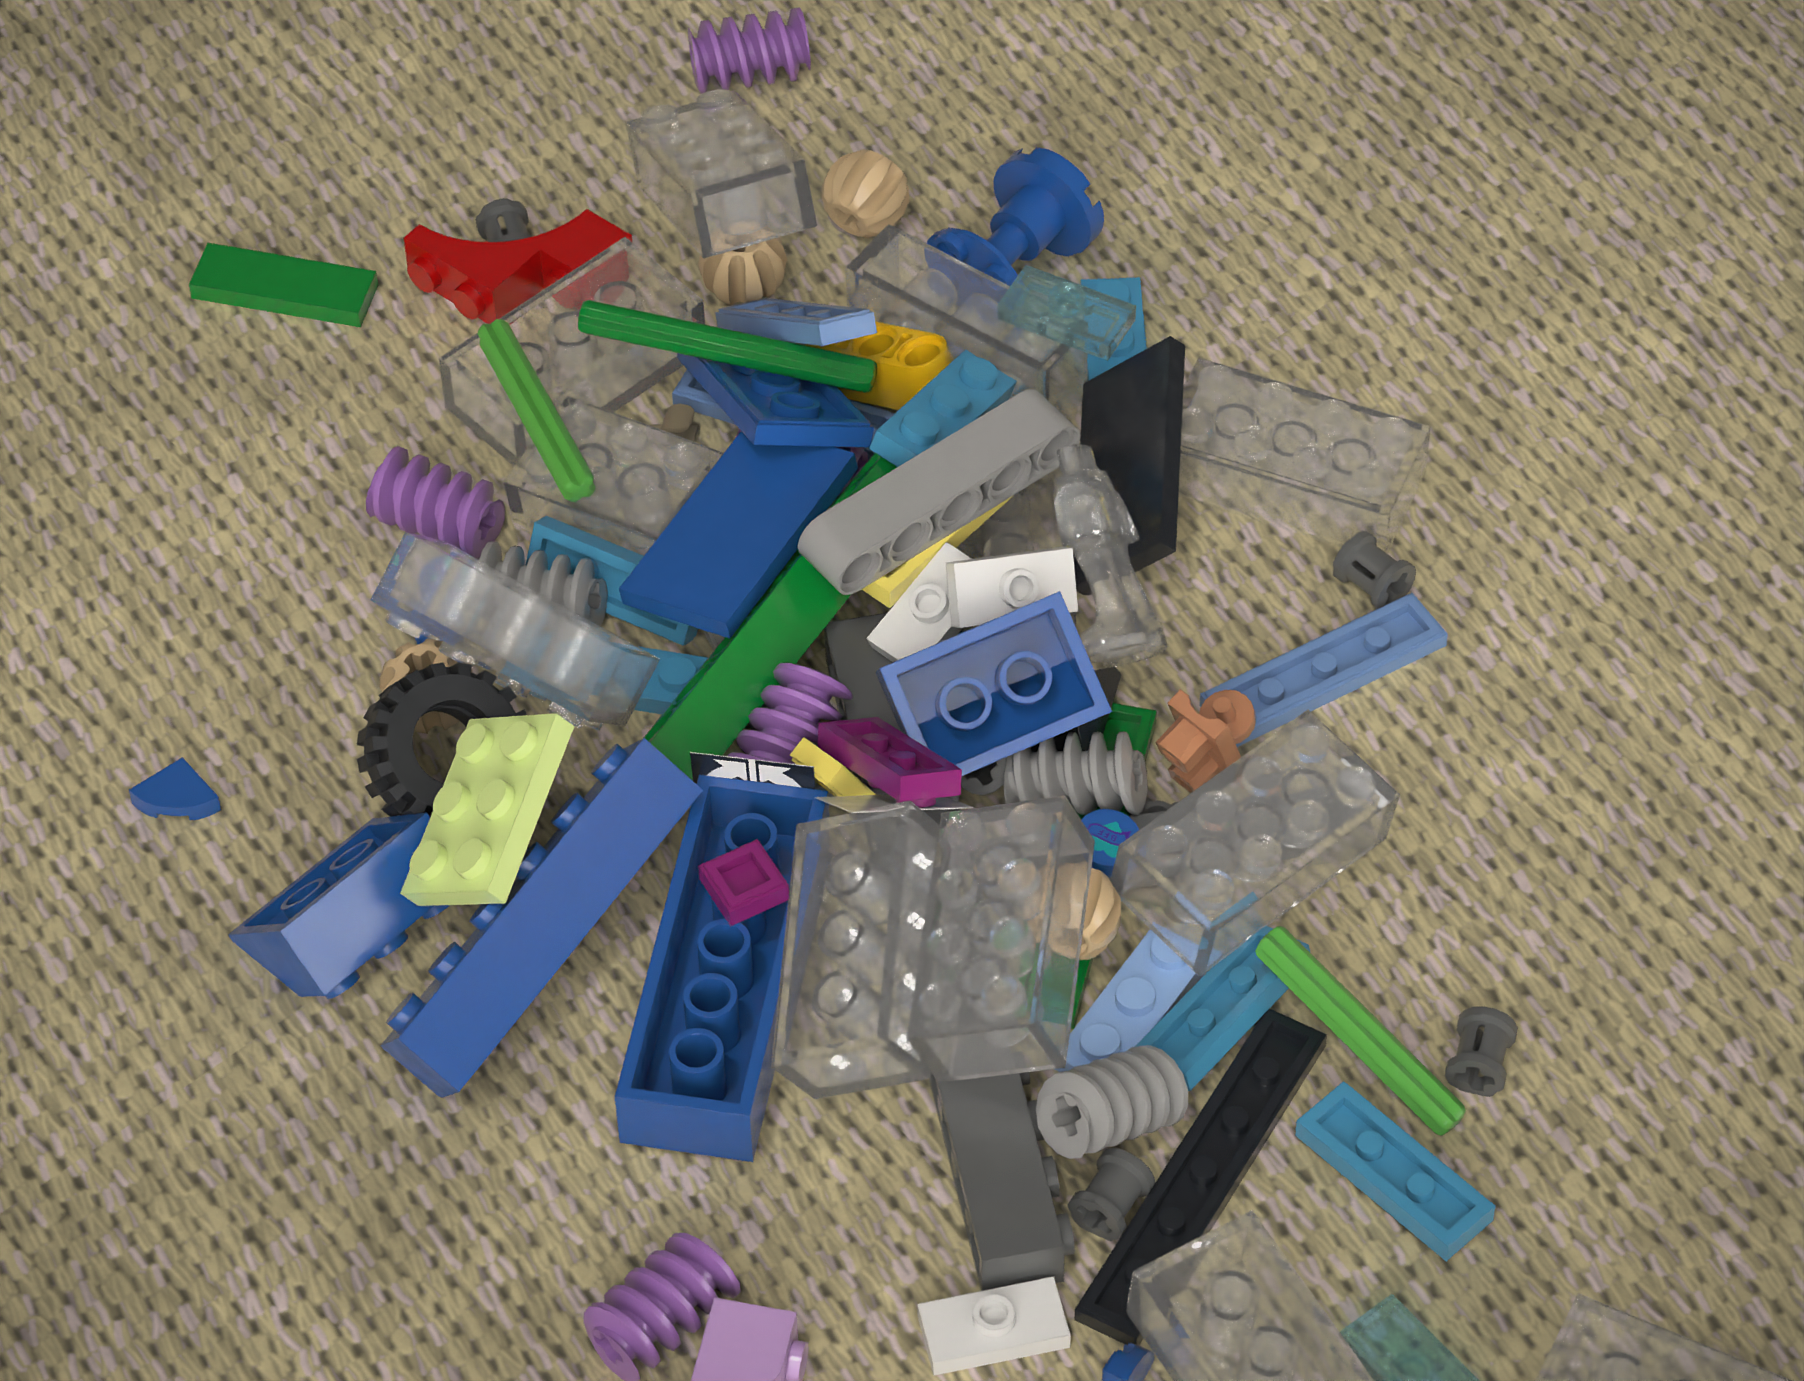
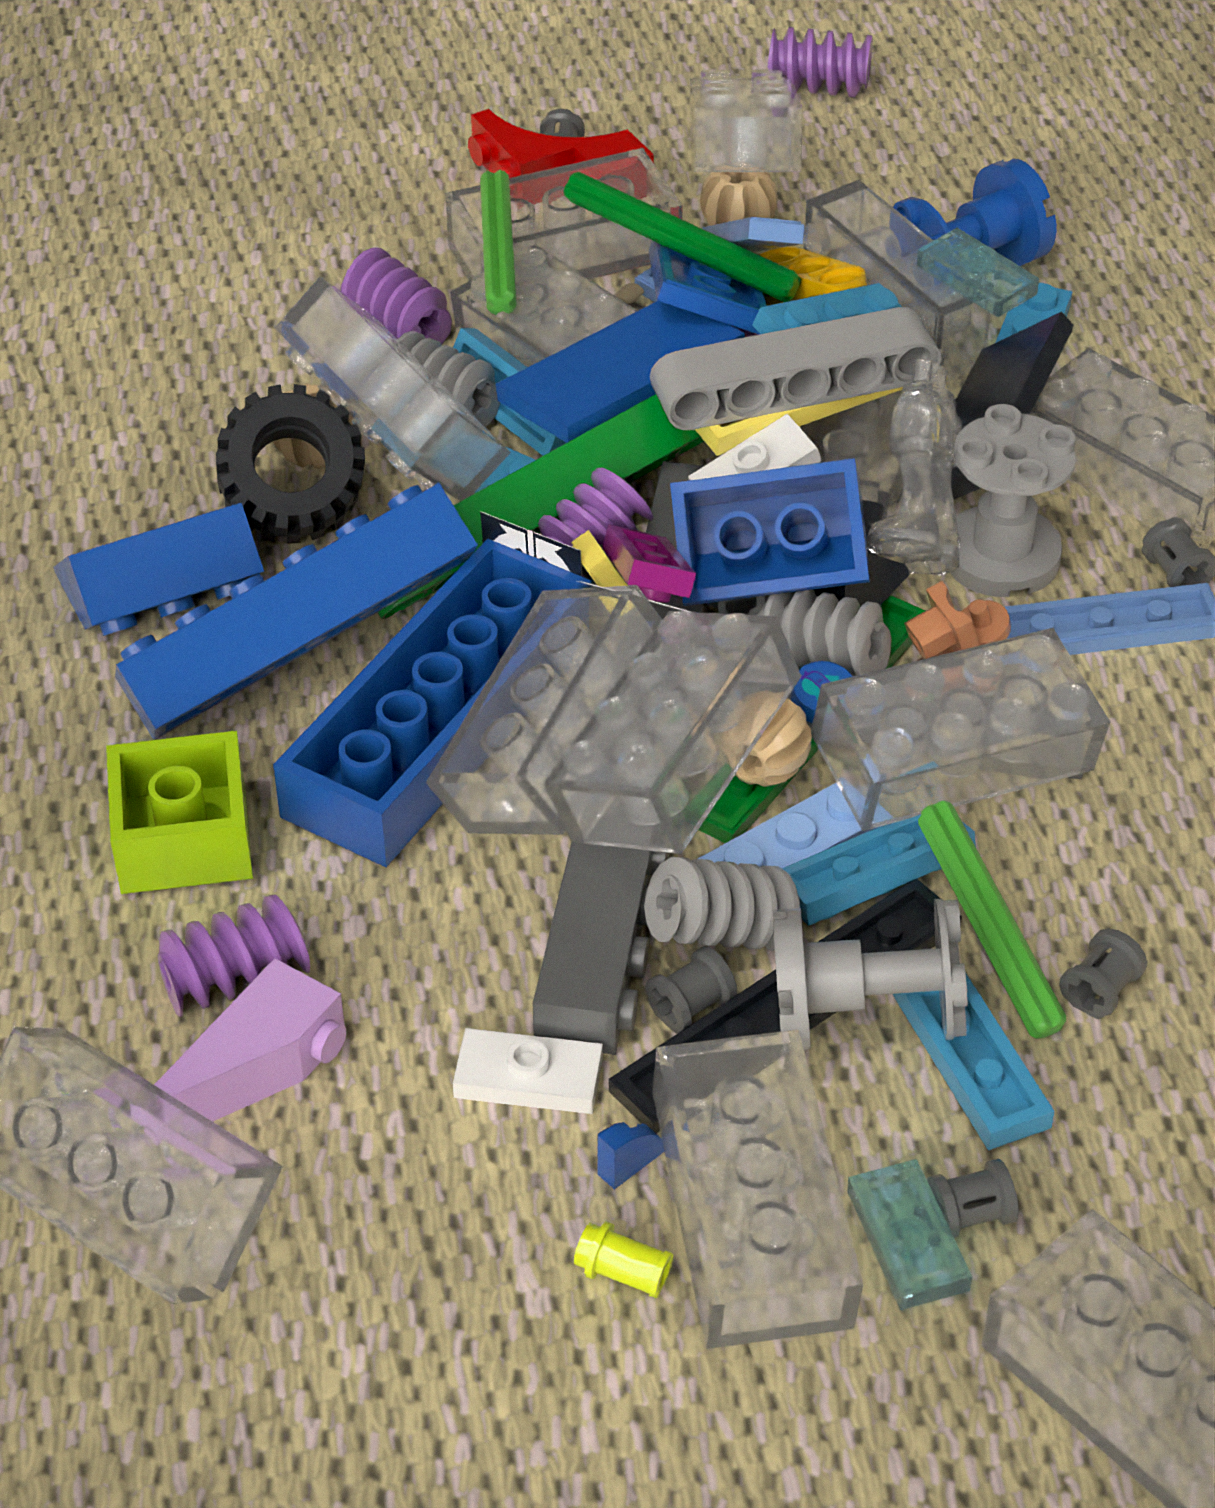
camera: 20 degrees right, 5 degrees down
(175, 792) = (73, 452): blue tile -> none
(283, 284) = (370, 135): green tile -> none
(487, 810) = (282, 506): yellowish green plate -> none
(532, 1173) = (178, 812): none -> lime brick
(744, 882) = (476, 627): magenta tile -> none
(865, 193) = (868, 161): tan piece -> none
(1003, 583) = (803, 445): white plate -> none
(1199, 537) = (1004, 536): none -> light grey piece
(1262, 1142) = (838, 976): none -> light grey piece
(1460, 1310) = (976, 1197): none -> dark grey bush

